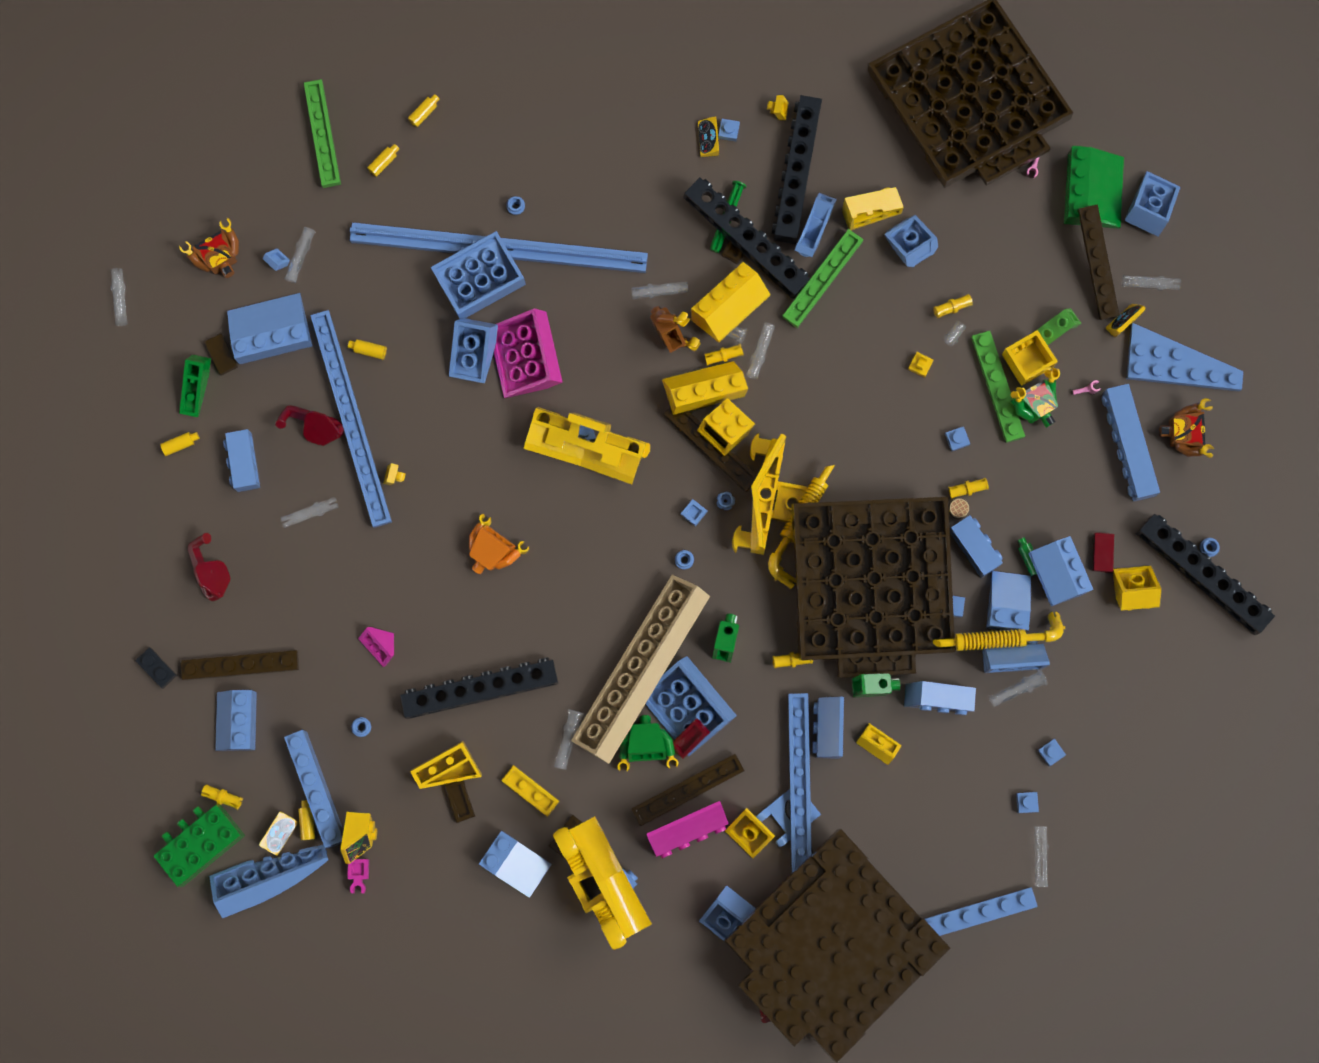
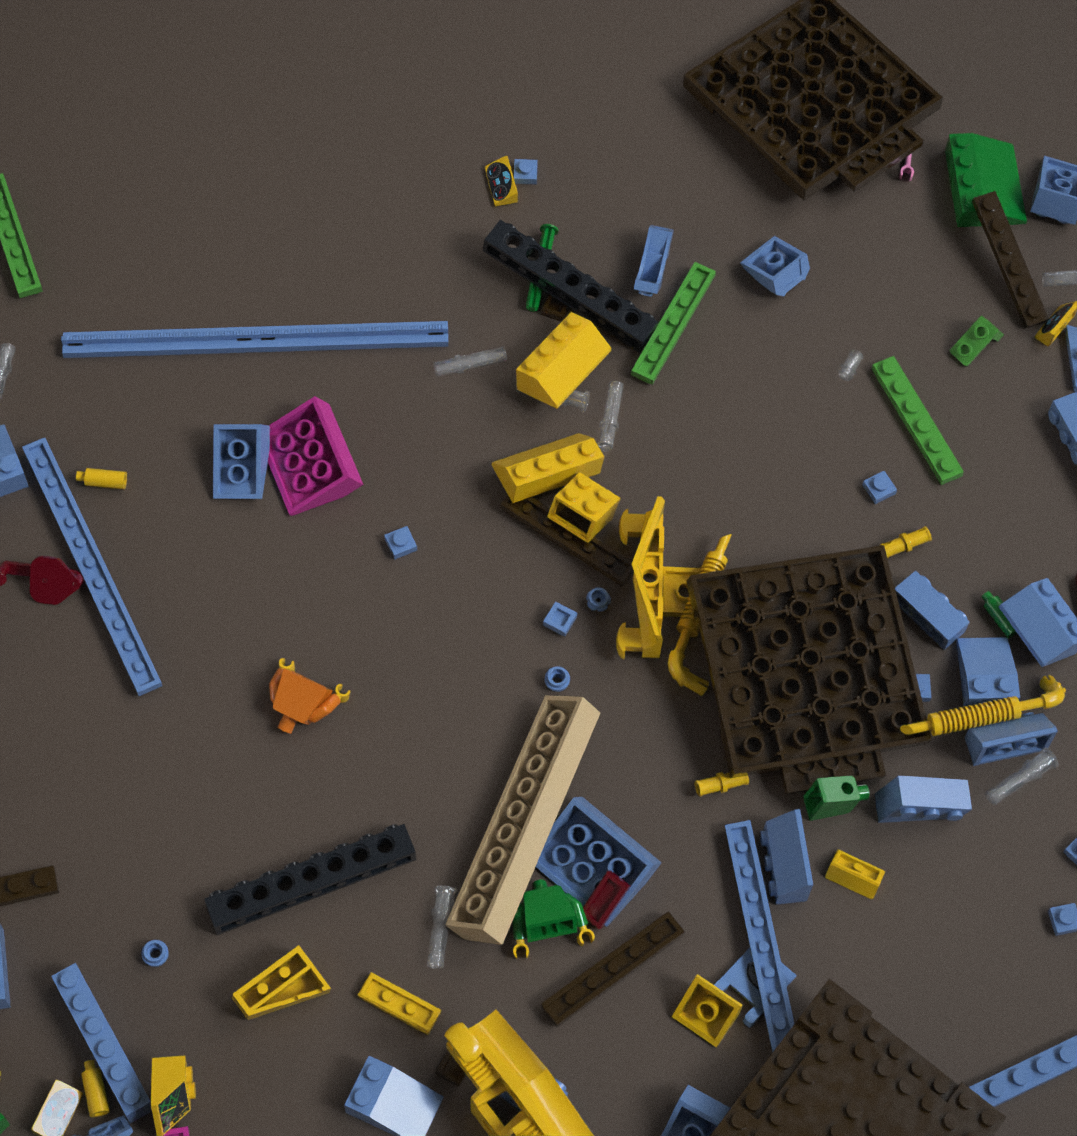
camera: 15 degrees left, 15 degrees down
(309, 512) = (50, 687): clear pin -> none
(379, 644) = (165, 842): dark pink slope -> none
(383, 160) = (93, 256): yellow cylinder -> none
(392, 475) = (156, 625): yellow tile -> none
(423, 110) = (137, 194): yellow cylinder -> none
(460, 801) = (304, 1031): dark brown tile -> none
(478, 275) = (236, 371): medium blue slope -> none
(515, 200) = (270, 282): medium blue plate -> none
(609, 454) = (438, 561): yellow piece -> none
(669, 330) = (491, 401): dark orange torso -> none
(687, 829) = (622, 1014): dark pink slope -> none
(723, 354) = (564, 426): yellow pin -> none
(725, 643) = (630, 768): green torso -> none
(779, 107) = (582, 138): yellow tile -> none
(805, 106) = (618, 150): black brick -> none
(871, 207) = (718, 234): yellow wedge -> none
(920, 364) = (815, 406): yellow tile -> none
(953, 306) = (841, 333): yellow pin -> none
(959, 508) = (900, 568): tile -> none
(1029, 358) = (949, 378): yellow piece -> none
(1038, 400) = (971, 425): torso -> none
(1089, 388) = (1031, 407): bright pink hand -> none

